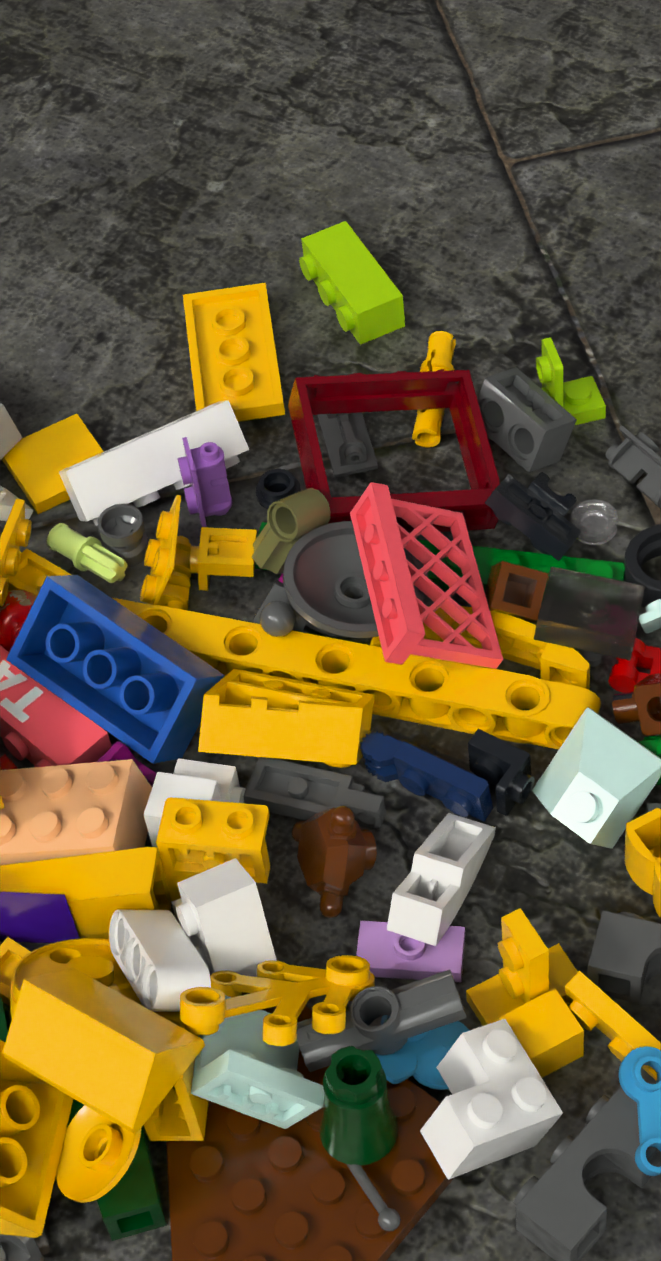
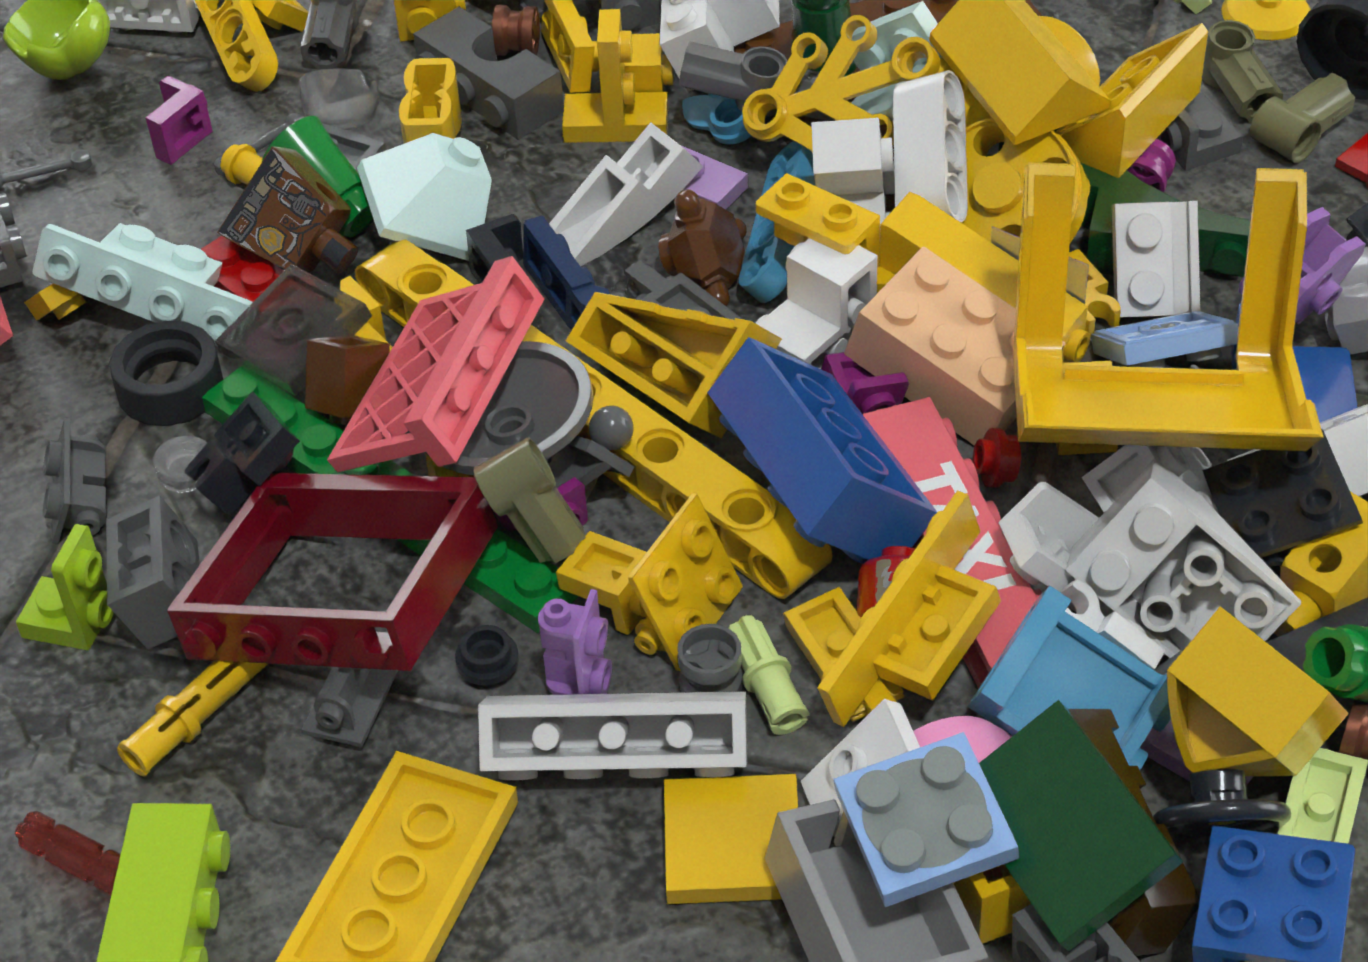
camera: 155 degrees left, 5 degrees down
(295, 919) = (765, 259): none -> dark azure beam
(437, 293) = (68, 850): none -> clear red axle

